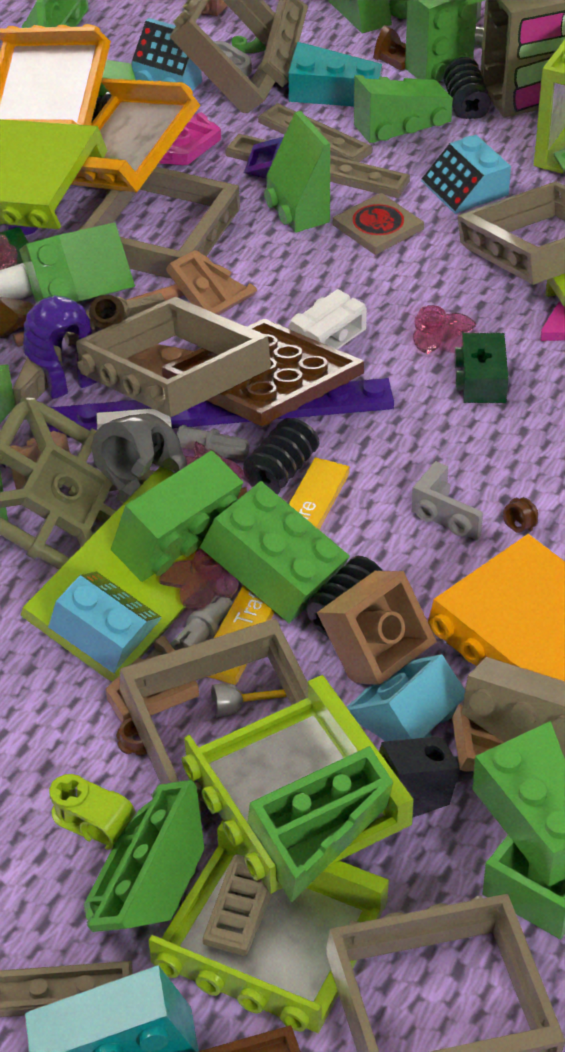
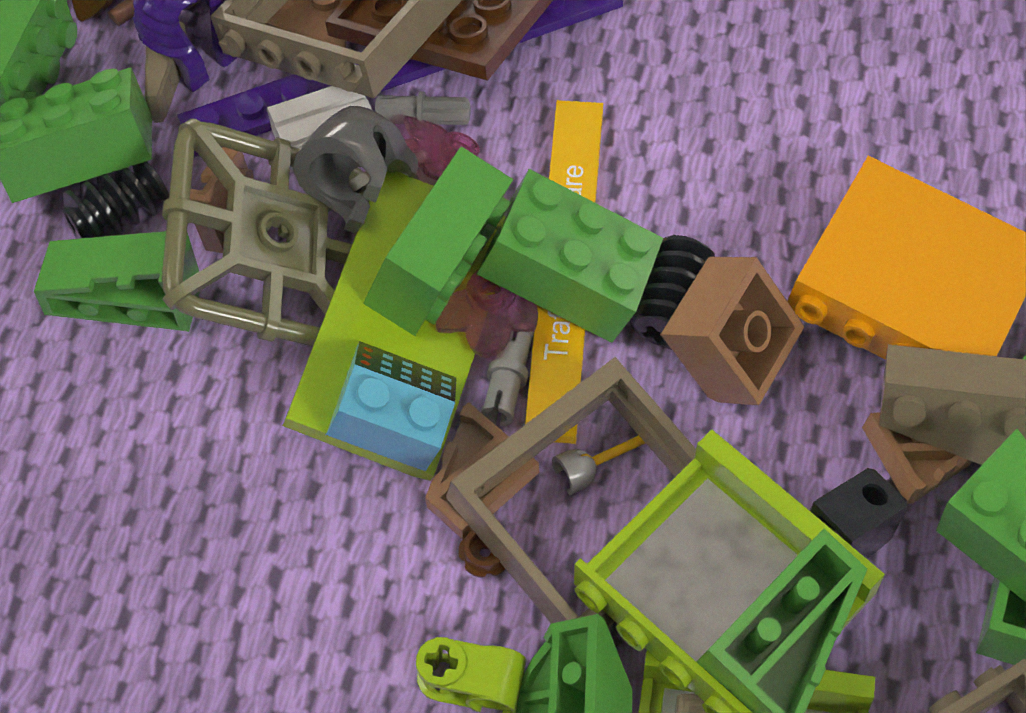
camera: 15 degrees left, 15 degrees up
(281, 454) = (516, 111): black piece -> none
(410, 700) = (801, 418): medium azure slope -> none
(432, 503) = (726, 136): light grey bracket -> none
(523, 512) = (835, 117): reddish brown plate -> none

